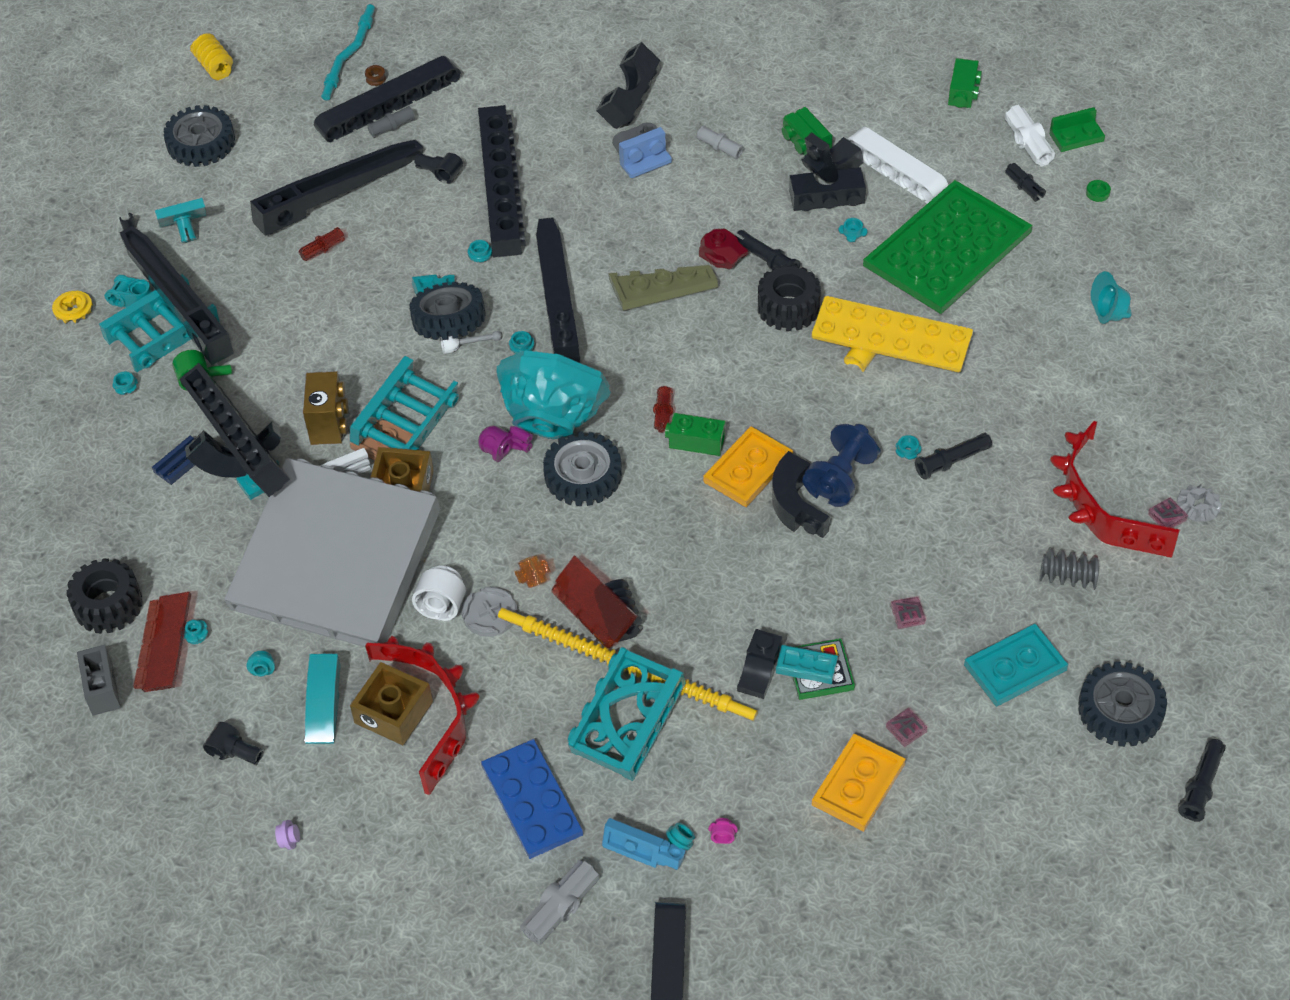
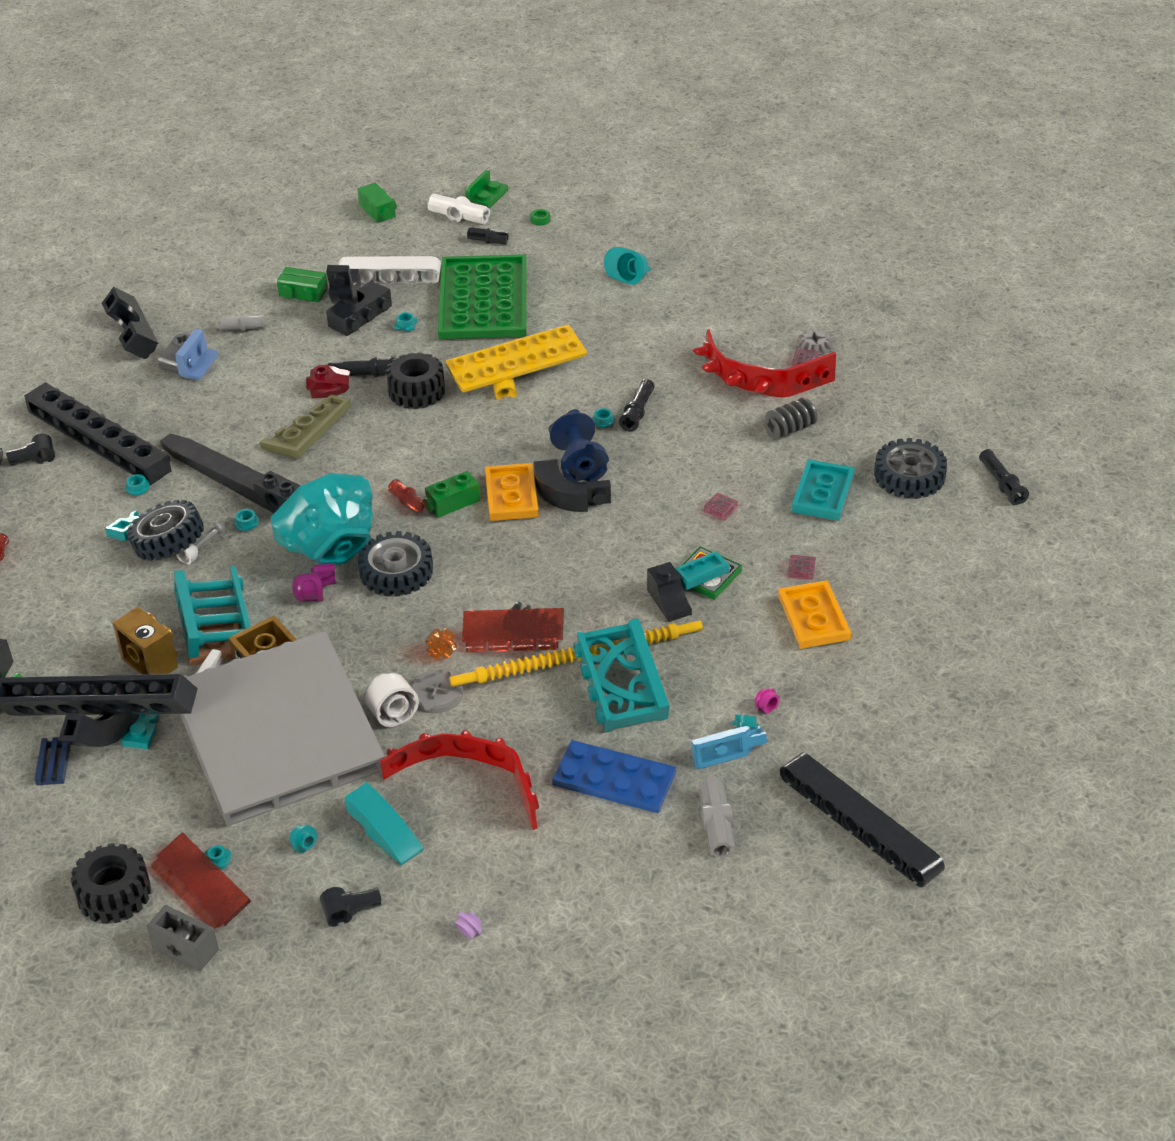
camera: 45 degrees left, 10 degrees down
(391, 703) = (444, 787): pearl gold brick -> none

